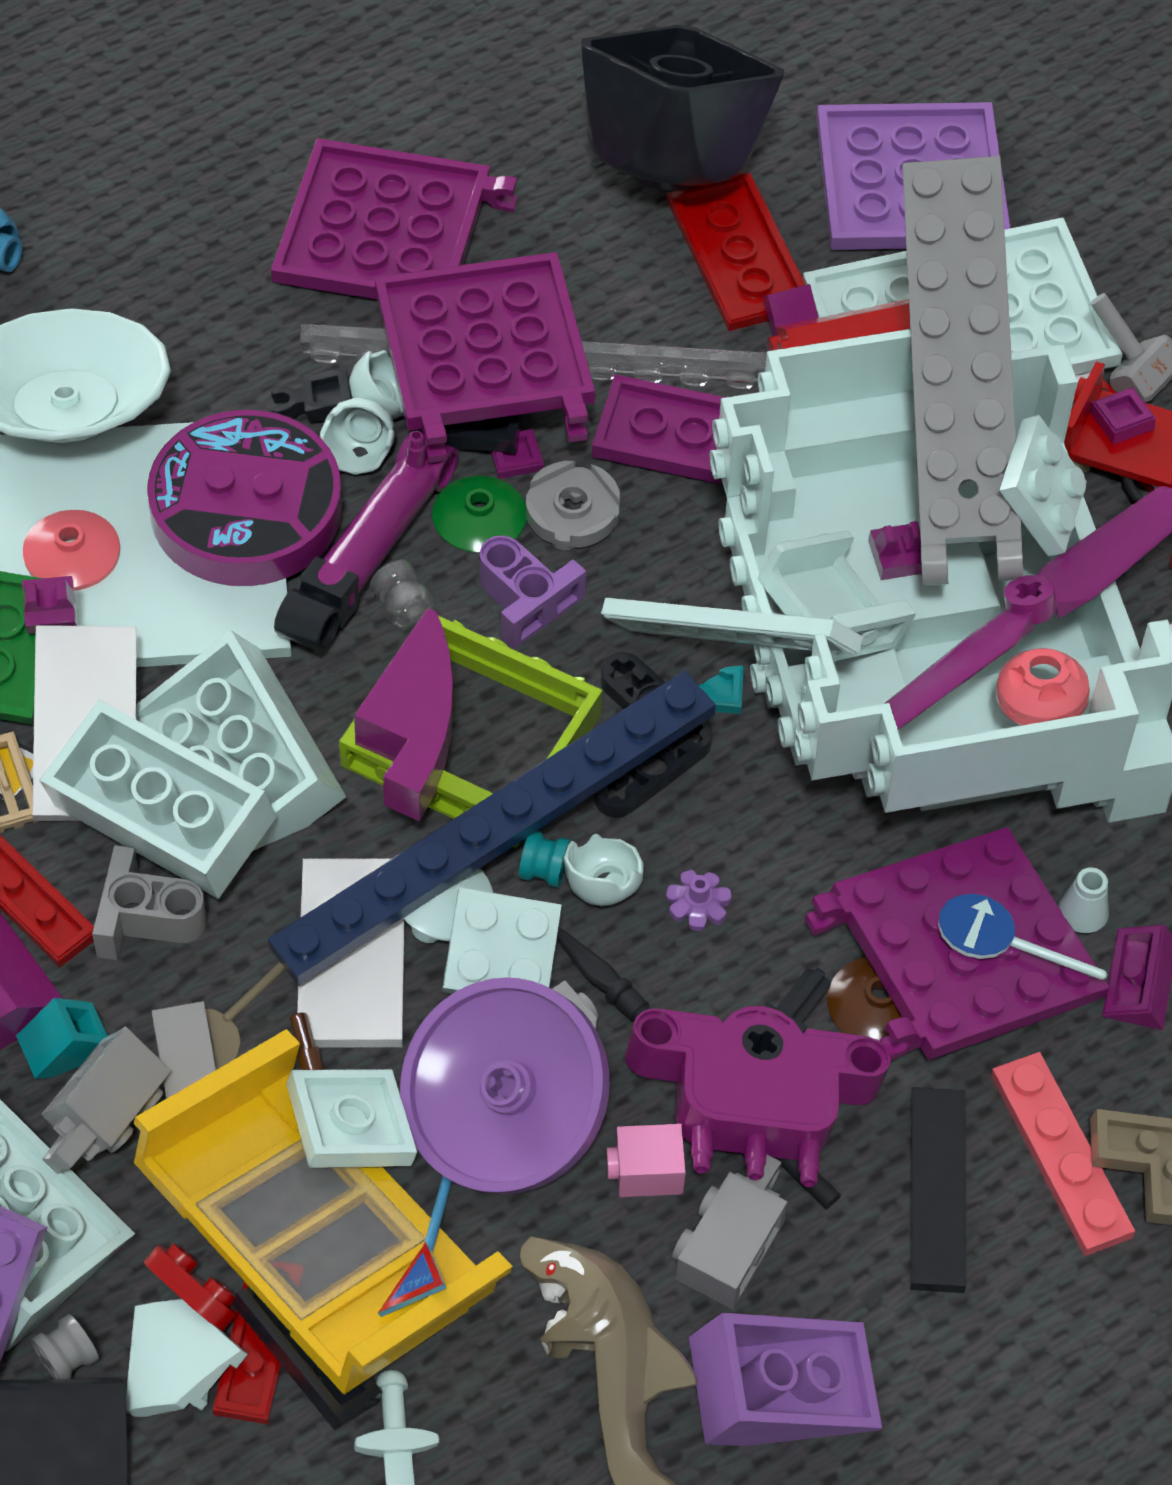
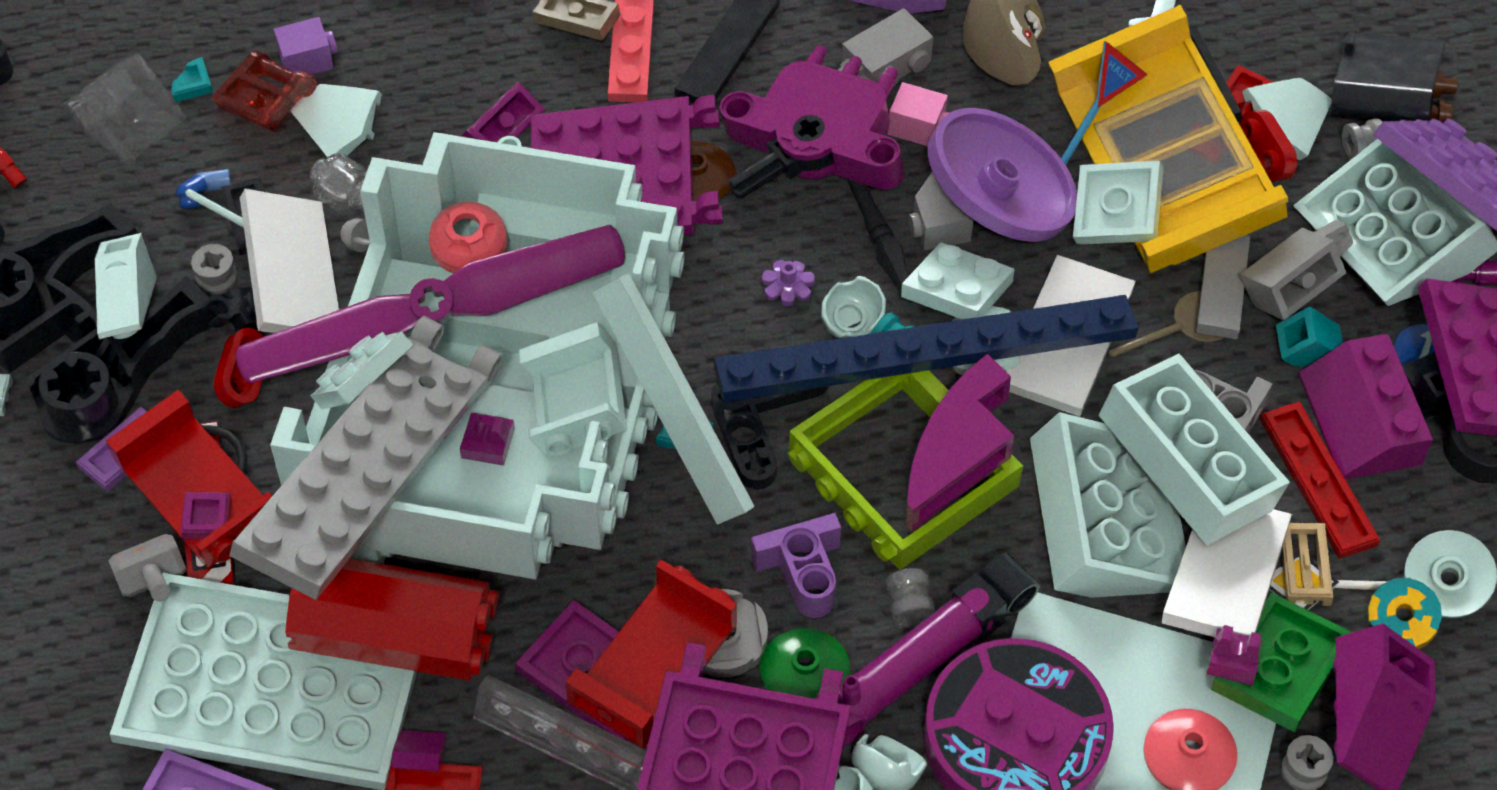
camera: 155 degrees left, 0 degrees up
(308, 1054) = (1131, 265): reddish brown pin -> none
(627, 432) = (630, 673): none -> red panel
(985, 929) = (604, 147): blue piece -> none

